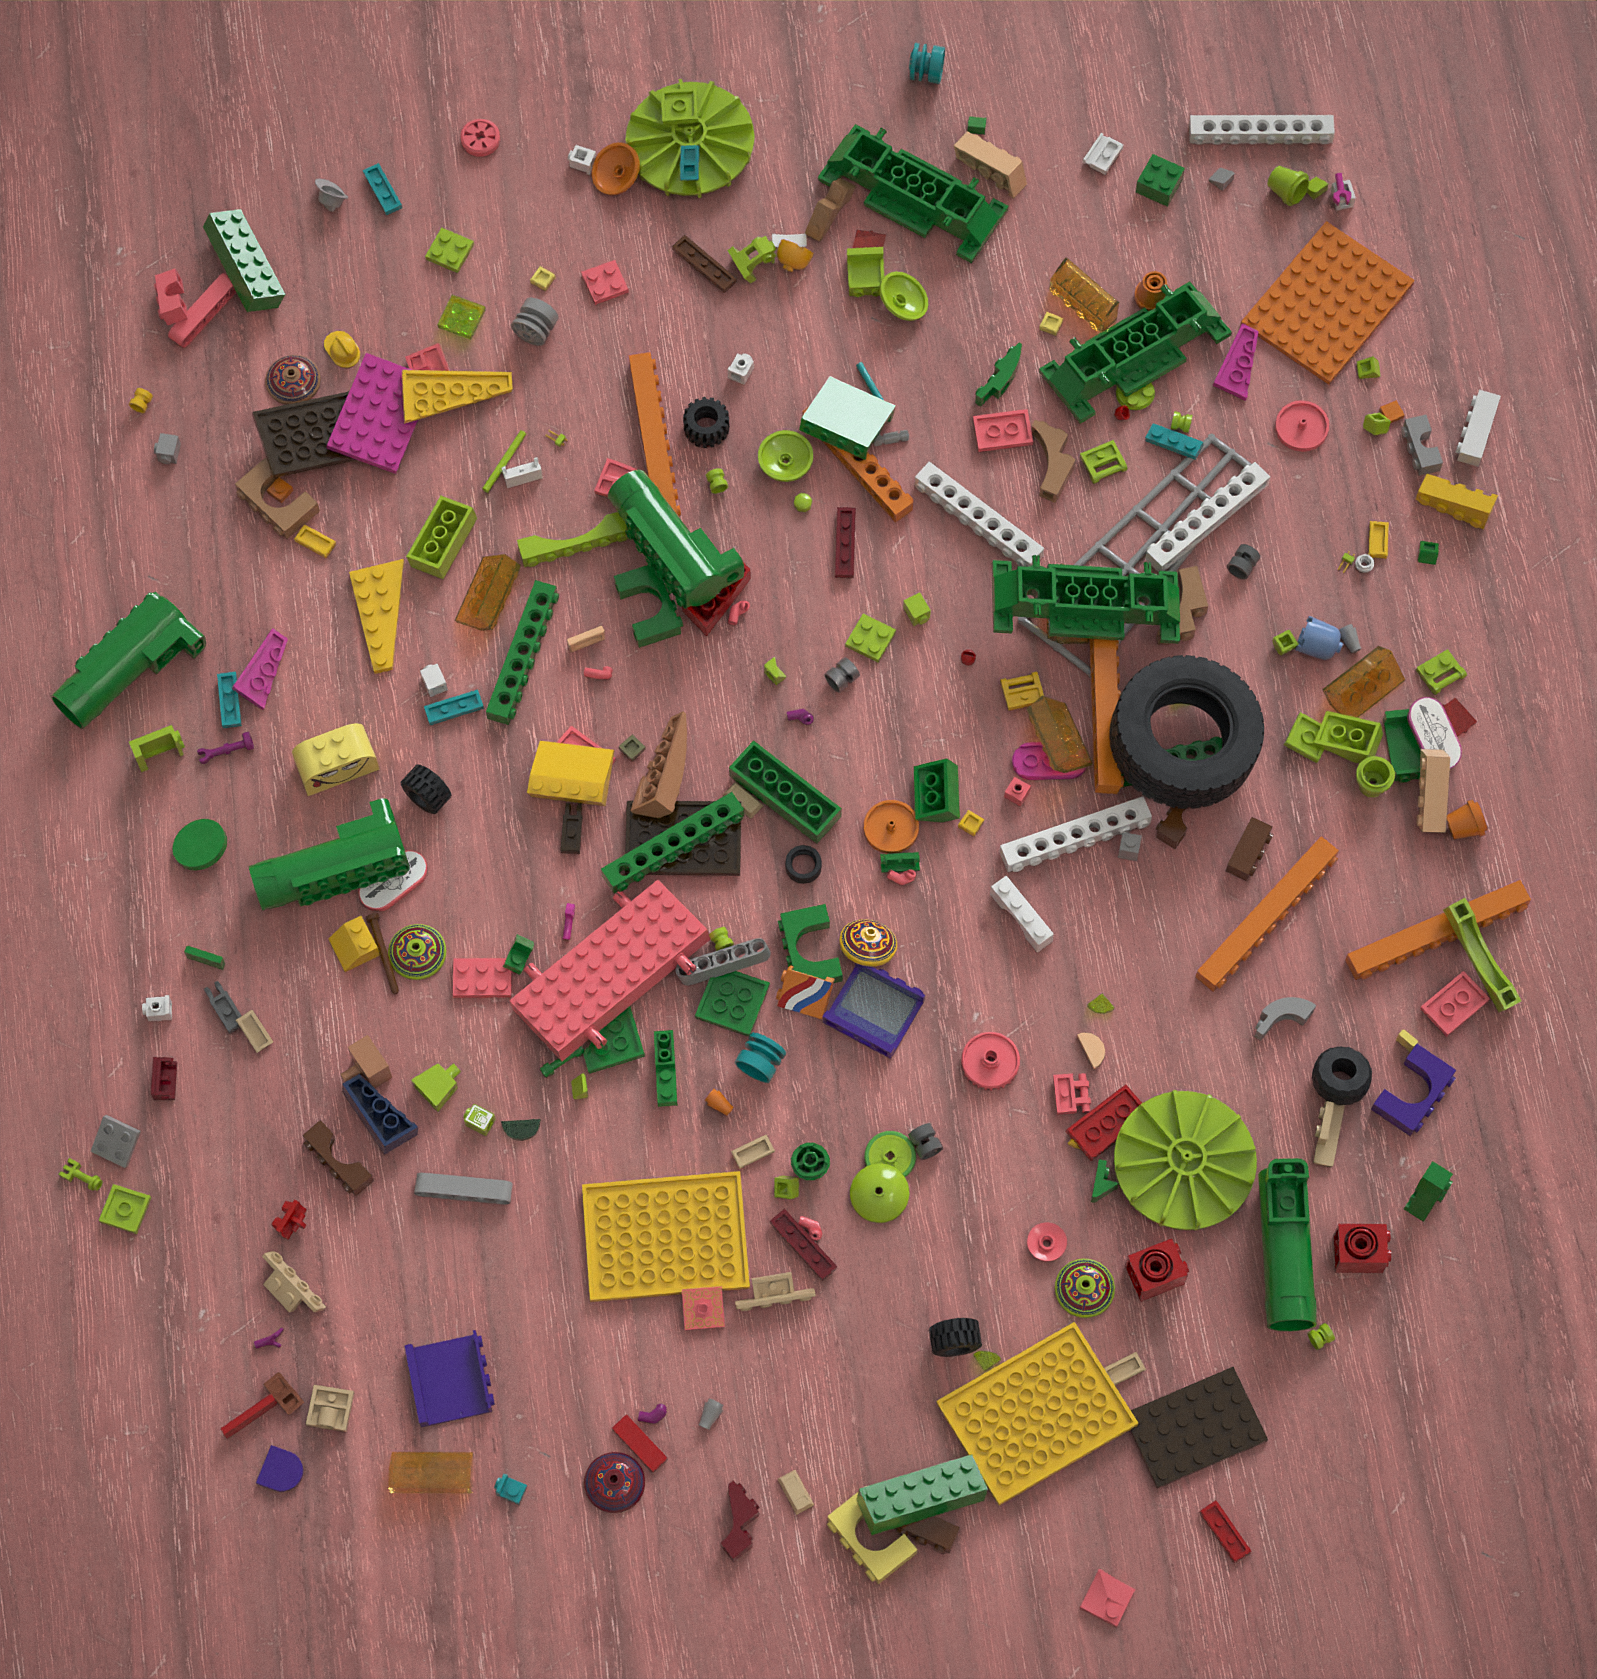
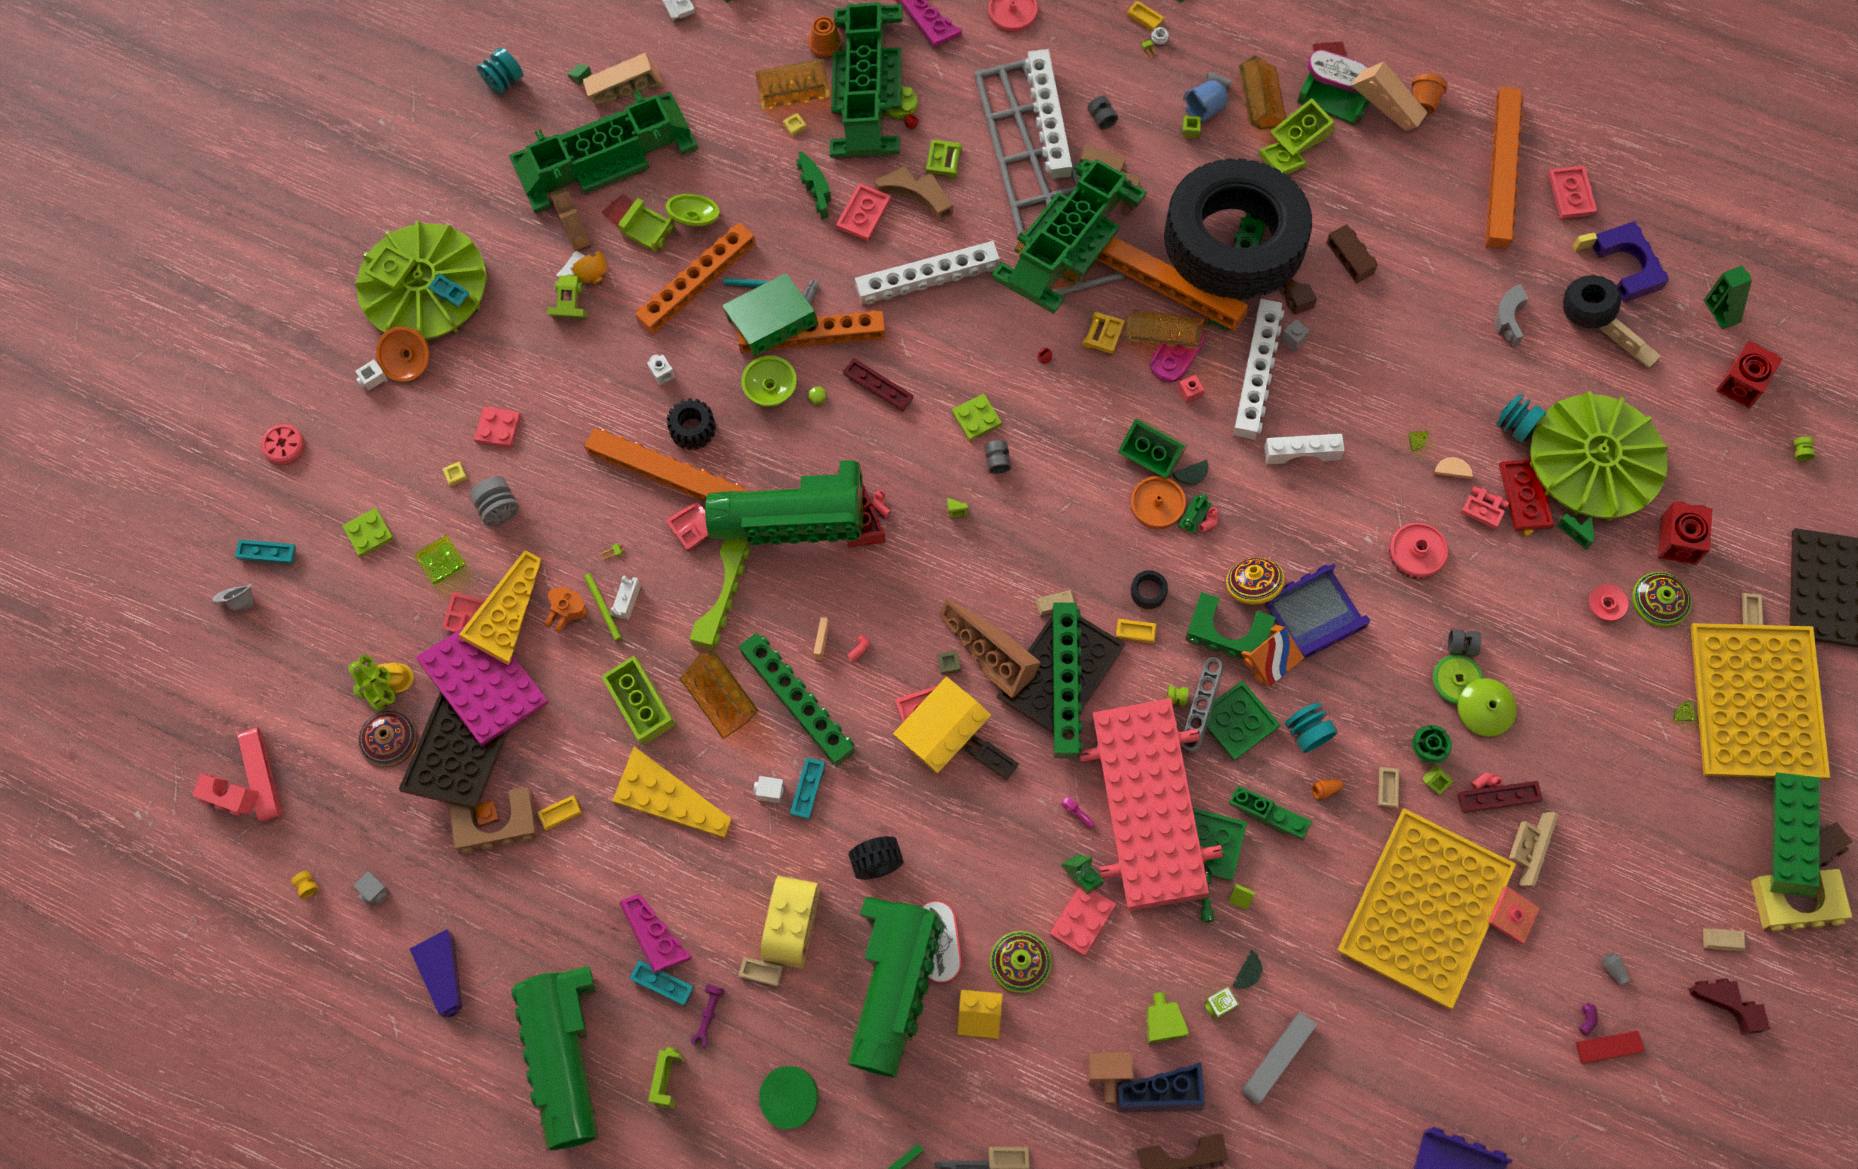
camera: 55 degrees left, 0 degrees up
(136, 538) = (440, 972): none -> dark purple slope
(243, 260) = (240, 708): brick -> none
(284, 765) = (760, 971): none -> tan tile
(323, 342) = (369, 679): none -> lime axle
(373, 920) = (1006, 993): reddish brown bar -> none
(483, 431) = (565, 606): none -> orange hinge
(615, 1496) = (1621, 1094): dish -> none
(666, 622) = (805, 554): green arch -> none
(704, 263) = (543, 340): reddish brown plate -> none
(717, 481) = (750, 448): lime wheel -> none
(760, 876) = (1136, 631): none -> yellow tile
(785, 792) = (1076, 563): green brick -> none
(802, 715) = (1011, 510): magenta arm -> none
(850, 347) = (693, 287): none -> orange brick
(917, 609) = (978, 366): lime brick -> none
(937, 839) = (1192, 474): none -> clear green tile
(955, 1337) = (1662, 722): black tyre -> none
(971, 823) = (1194, 440): yellow tile -> none
(1174, 441) = (963, 100): teal plate -> none
(1175, 1073) = (1520, 418): none -> teal wheel
(1182, 422) = (950, 85): lime wheel -> none
(1267, 914) = (1416, 275): orange brick -> none
(1287, 1246) = (1700, 414): green piece -> none
(1378, 770) = (1352, 130): lime piece -> none
(1438, 667) = (1280, 40): lime plate -> none
(1467, 930) = (1520, 140): lime arch -> none

